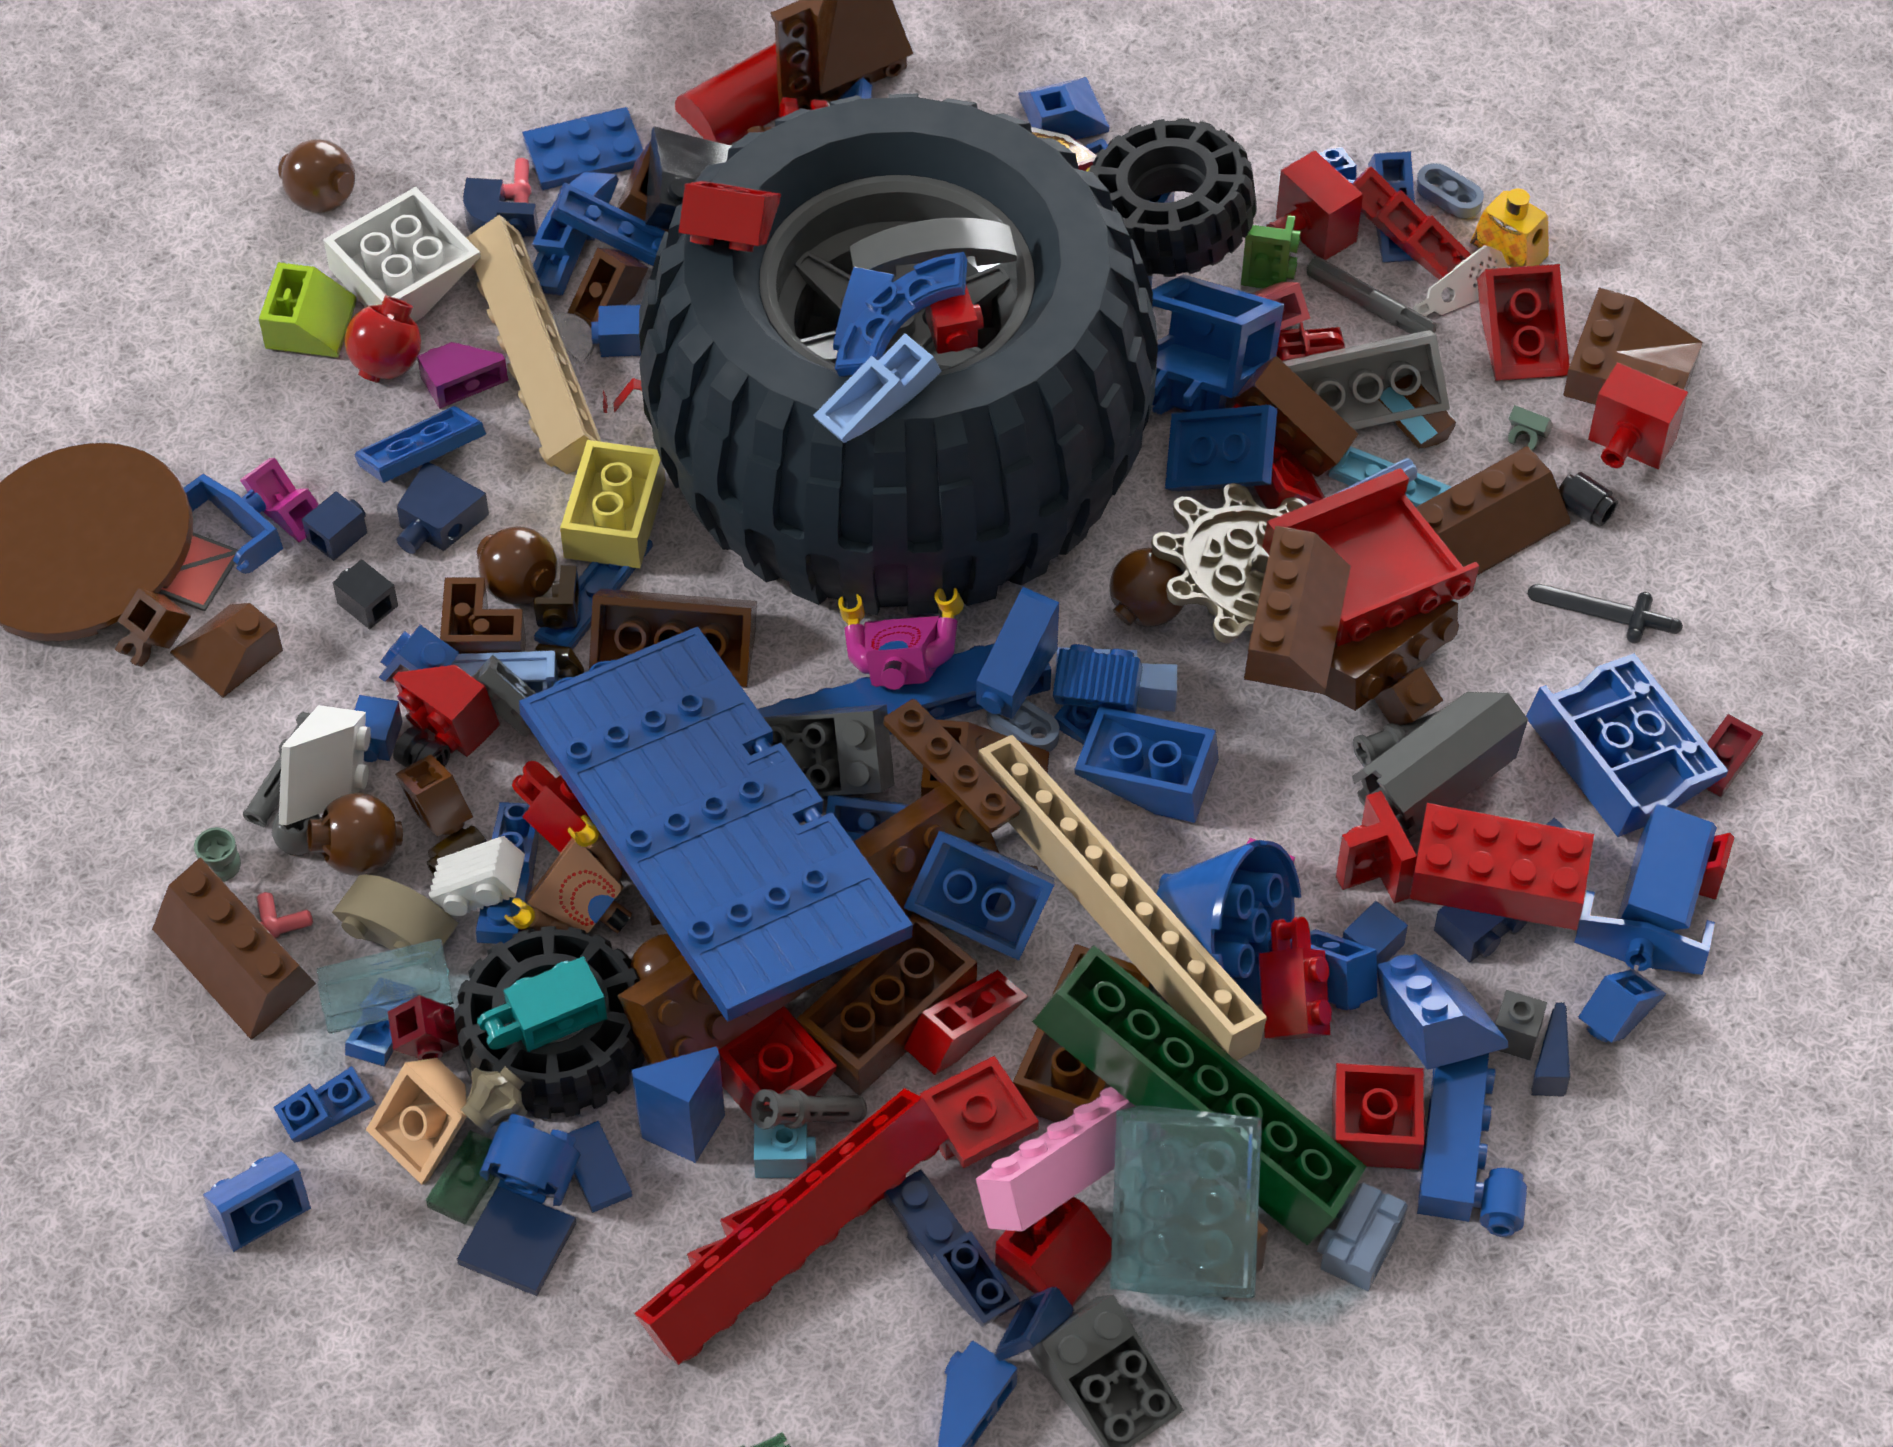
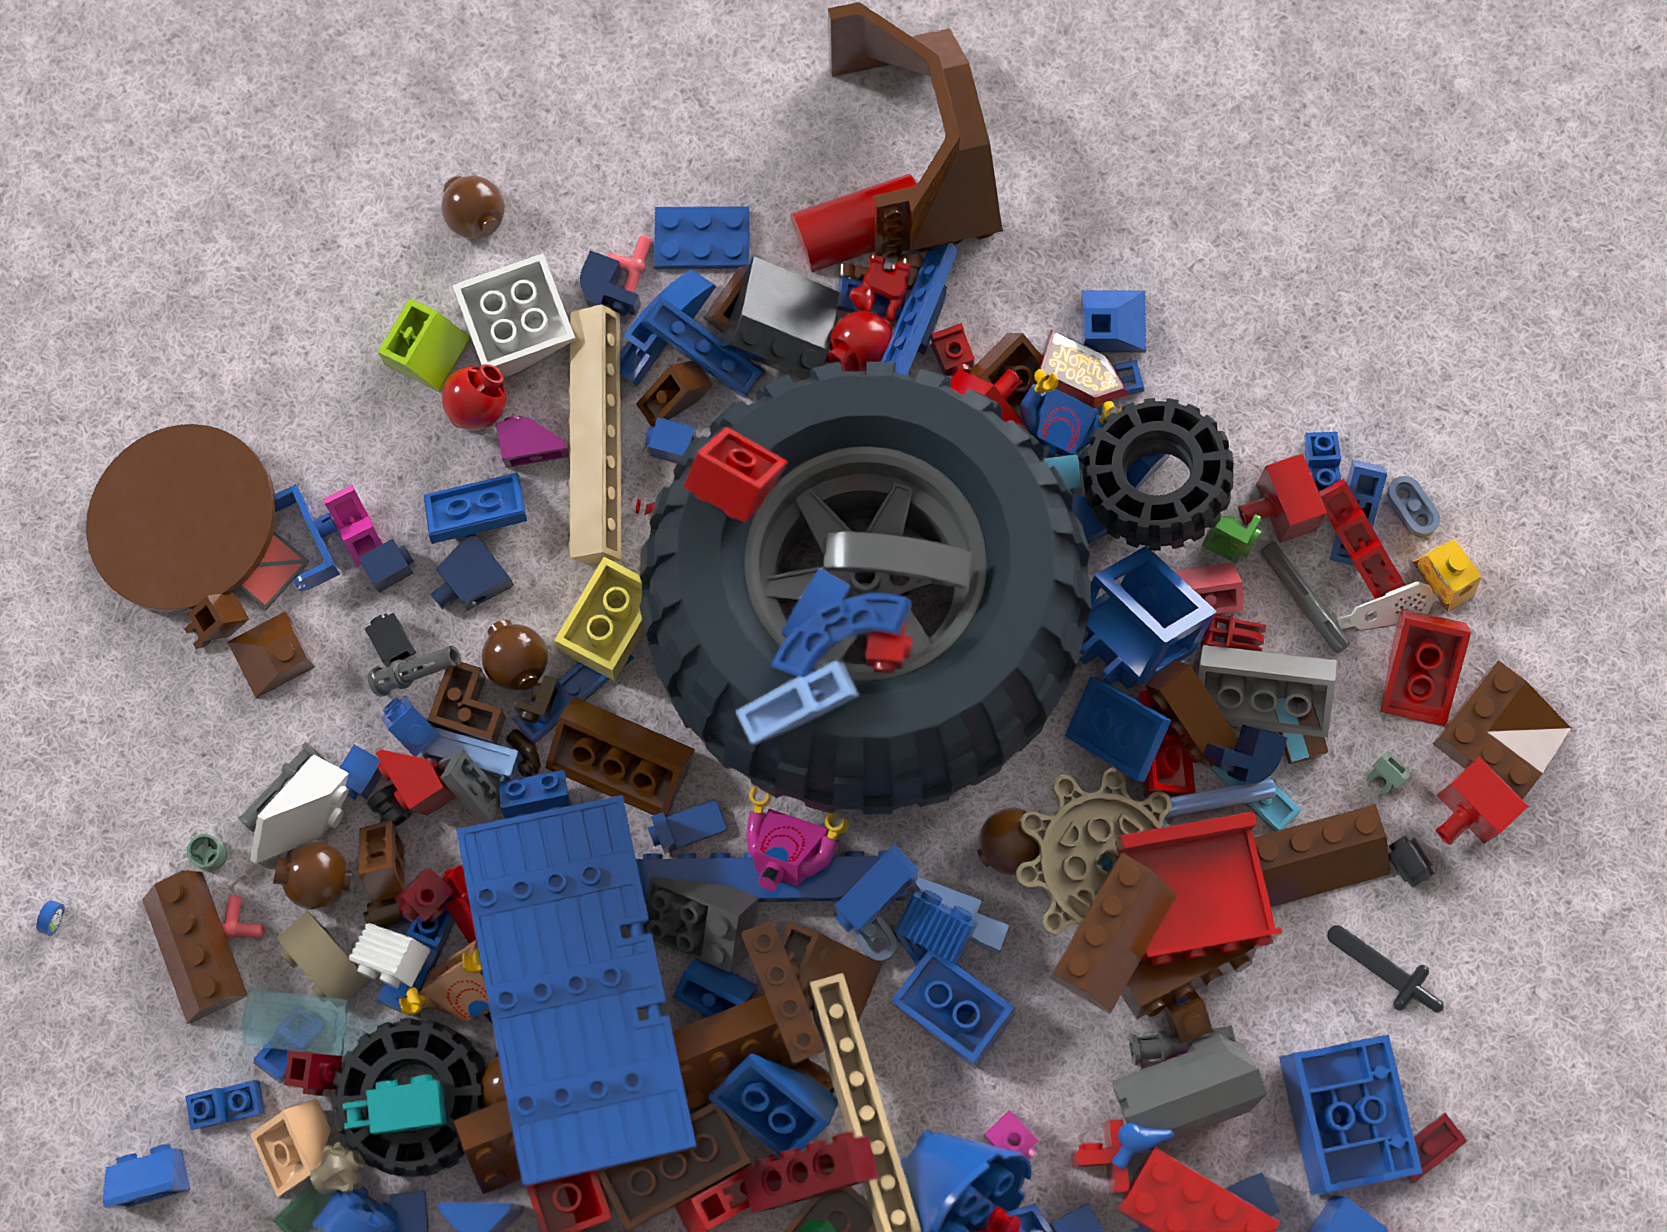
camera: 20 degrees right, 20 degrees up
(45, 971) = (50, 917): none -> blue tile
(392, 615) = (443, 659): none -> dark grey pin
(499, 804) = (424, 897): none -> dark red brick
(777, 680) = (687, 826): none -> blue bracket
(1072, 932) = (810, 1173): none -> dark red brick
(1375, 438) = (1254, 756): none -> dark blue brick
(1405, 803) = (1137, 1141): none -> blue animal

